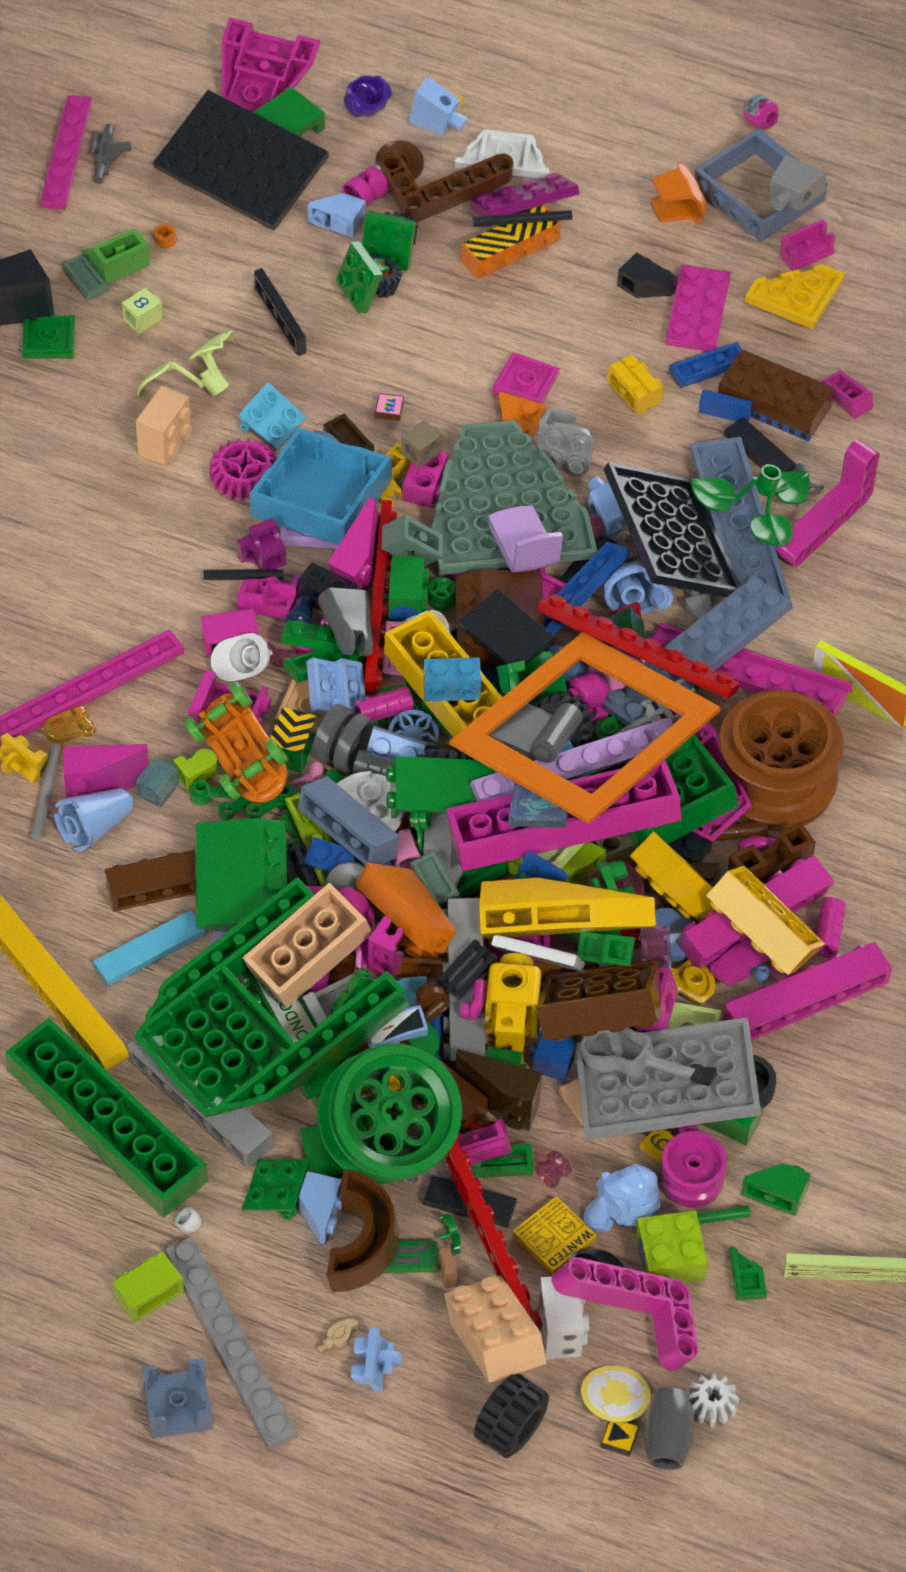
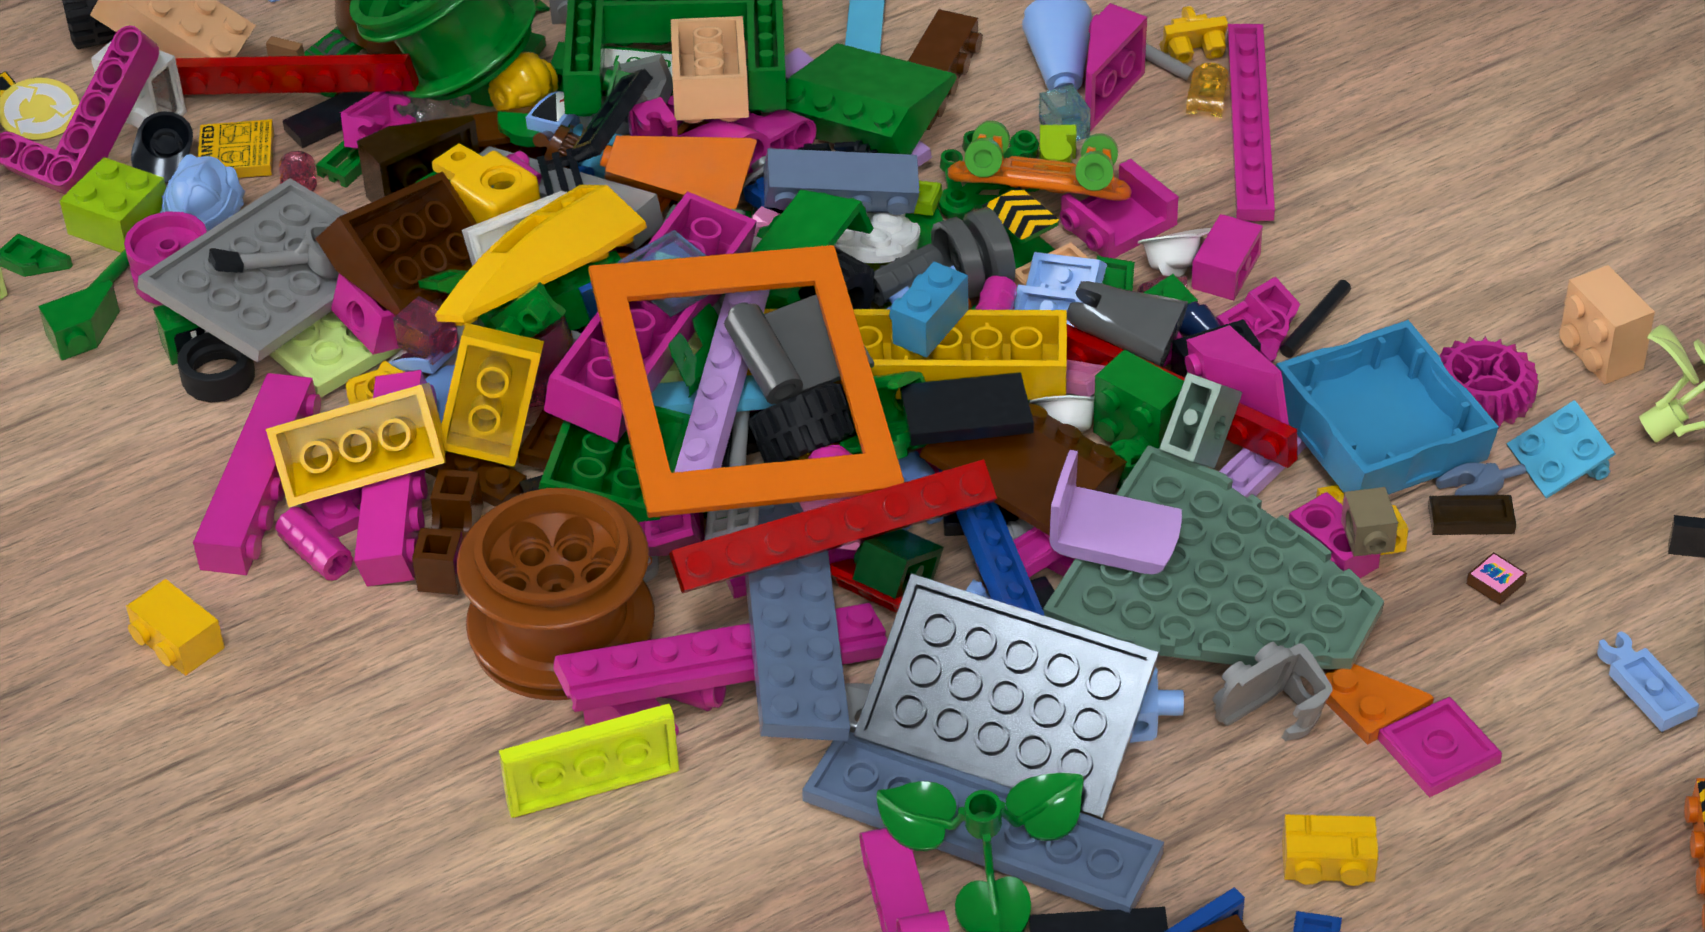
camera: 130 degrees right, 10 degrees down
(262, 546) = (1333, 329): magenta brick -> none
(409, 952) = (611, 115): none -> black tile
(417, 316) = (1647, 683): none -> light blue plate

